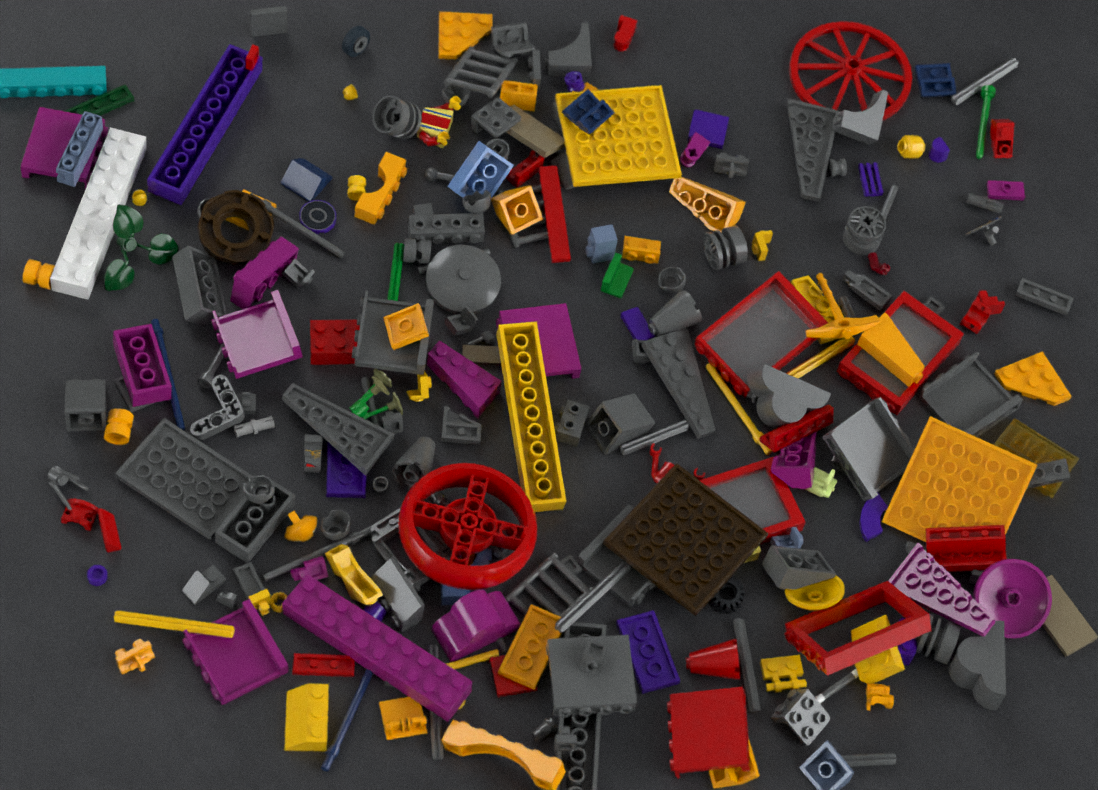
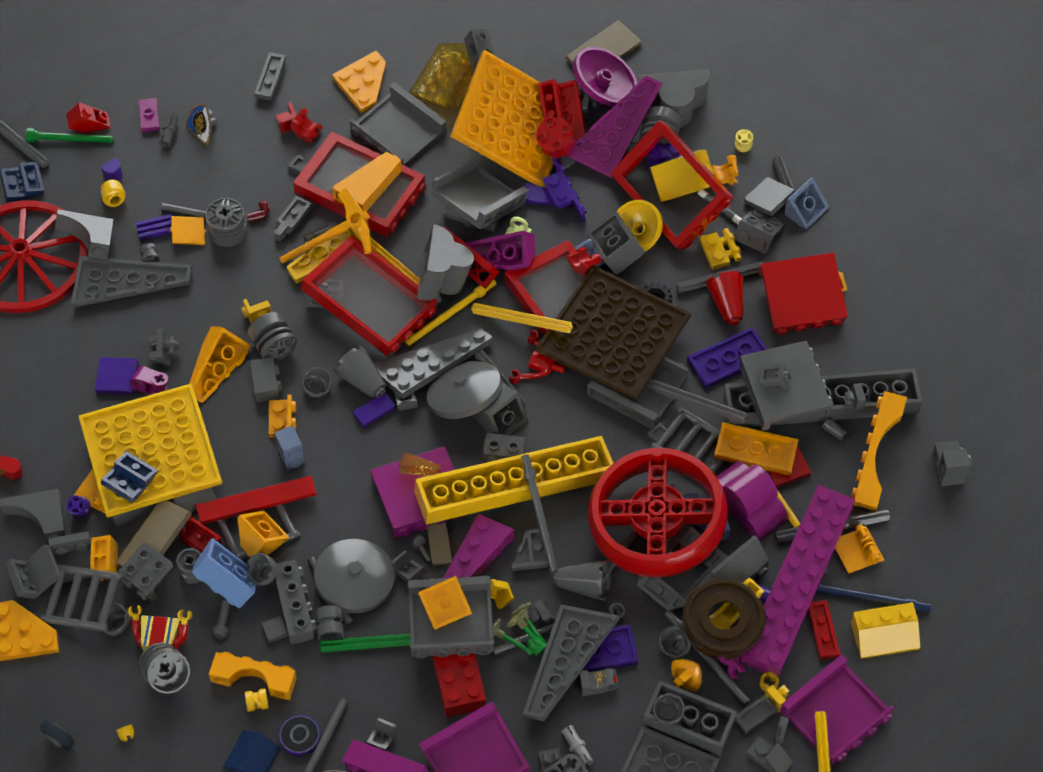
camera: 90 degrees left, 0 degrees up
(341, 580) = (715, 641): none -> dark brown piece
(524, 418) = (530, 475): none -> dark grey bar
(561, 334) = (418, 466): none -> clear yellow slope
(616, 277) = (320, 436): green panel -> none
(640, 395) = (464, 390): none -> dark grey dish
(683, 239) = (264, 379): none -> dark grey piece
(715, 460) = (521, 317): none -> yellow axle
(775, 526) = (582, 261): none -> red piece
(842, 734) = (769, 196): none -> tile
(861, 197) = (187, 230): none -> light orange piece
(872, 533) = (561, 192): none -> dark purple bracket
(920, 723) = (740, 138): none -> light yellow wheel
(930, 527) = (555, 137): none -> red brick

